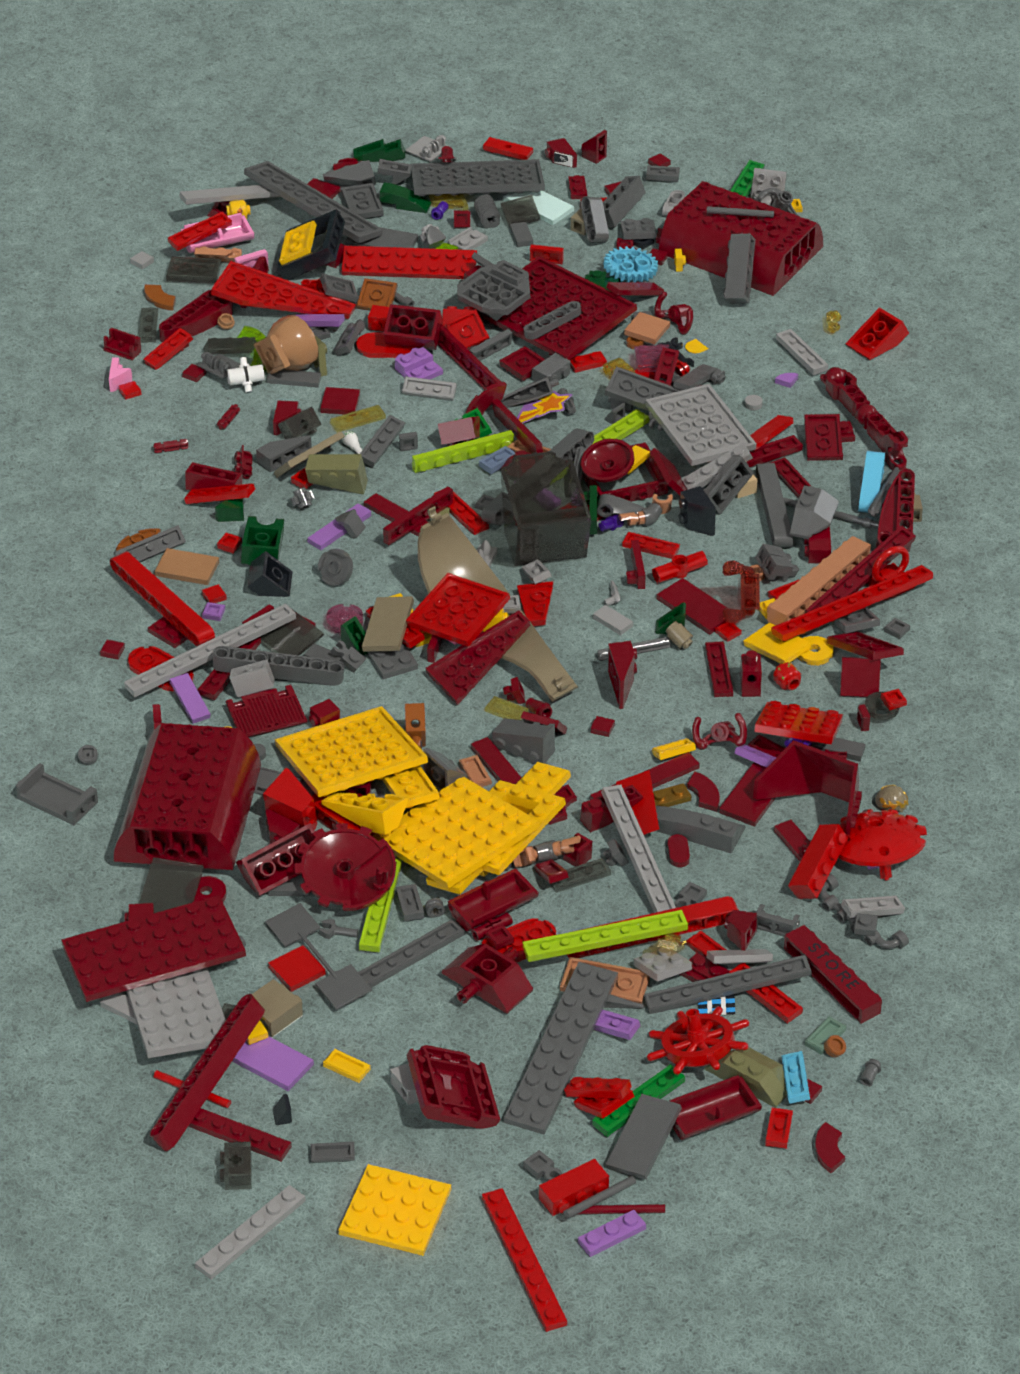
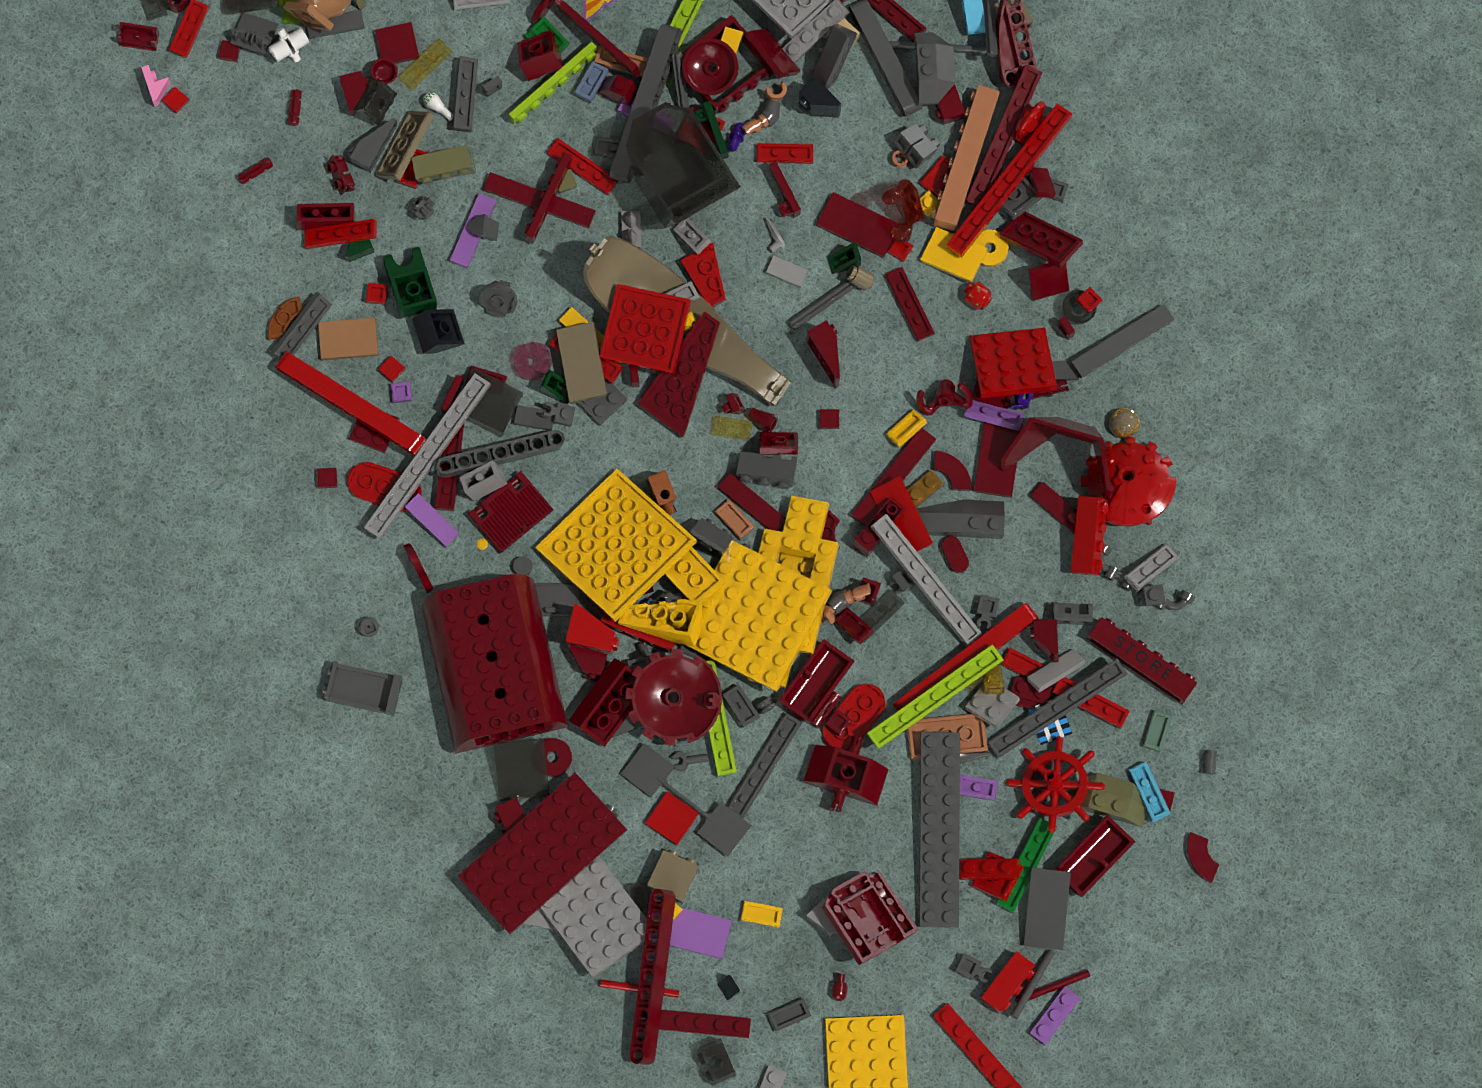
camera: 25 degrees left, 35 degrees up
(321, 408) = (384, 70): none -> dark red piece
(324, 713) = (567, 499): dark red brick -> none
(395, 1144) = (839, 988): none -> dark red cylinder
(611, 504) = (734, 116): dark grey piece -> none
(679, 566) = (819, 187): red piece -> none
(750, 665) = (945, 309): dark red torso -> none
(779, 1128) = (1154, 852): red plate -> none
(835, 1046) = (1170, 743): dark orange tile -> none
(883, 614) = (1042, 182): none -> dark red tile
(915, 741) = (1122, 341): none -> dark grey tile

